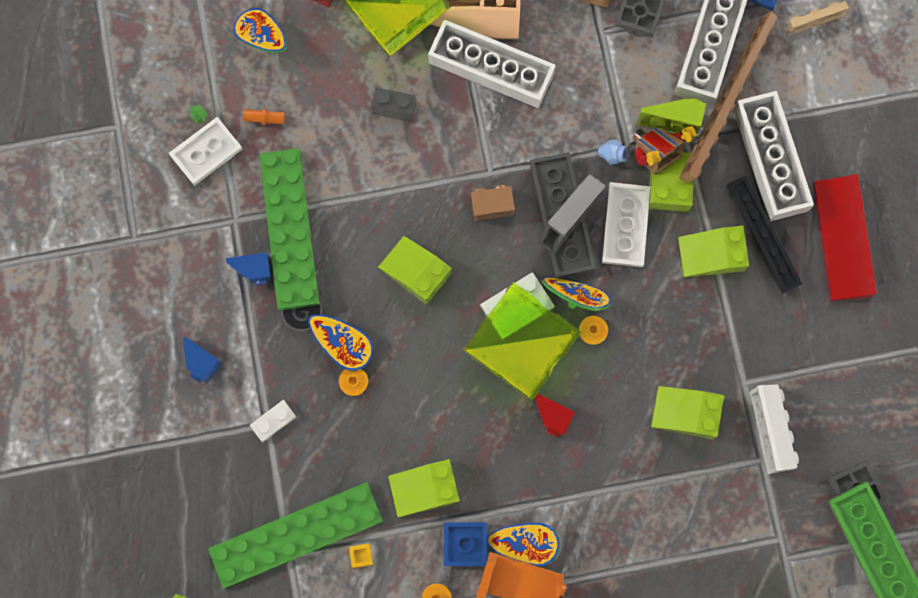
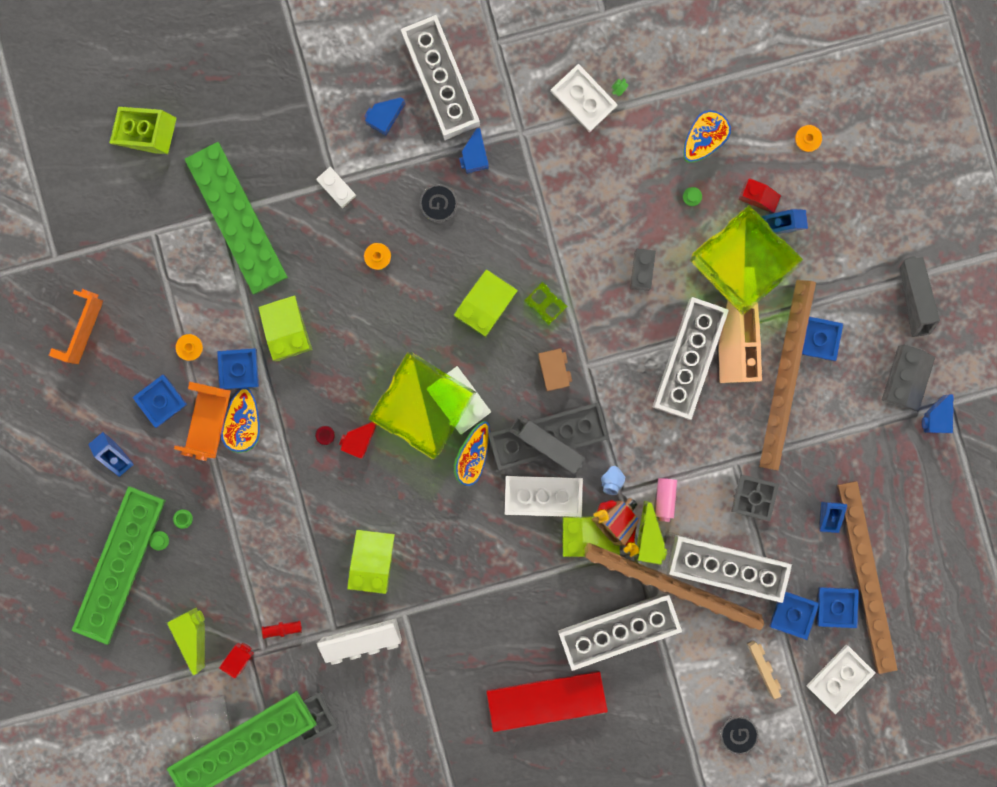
camera: 85 degrees right, 10 degrees up
(165, 296) = (440, 77): none -> white brick
(263, 116) = (622, 148): orange pin -> none
(289, 229) = (515, 183): bright green plate -> none
(321, 51) = (692, 196): none -> bright green plate
(341, 341) = (411, 242): shield -> none
(361, 555) = (222, 277): yellow tile -> none
(424, 212) = (550, 298): none -> clear neon green piece
(545, 453) = (325, 435): none -> dark red tile
(593, 330) = (441, 471): light orange piece -> none
(634, 99) = (665, 499): none -> bright pink brick
(714, 252) = (523, 579): lime slope -> none
(757, 516) = (281, 629): none -> red pin
(764, 234) = (544, 625): black plate -> none
(790, 567) = (237, 660): none -> red slope
(883, 48) = (739, 735): none -> black tile

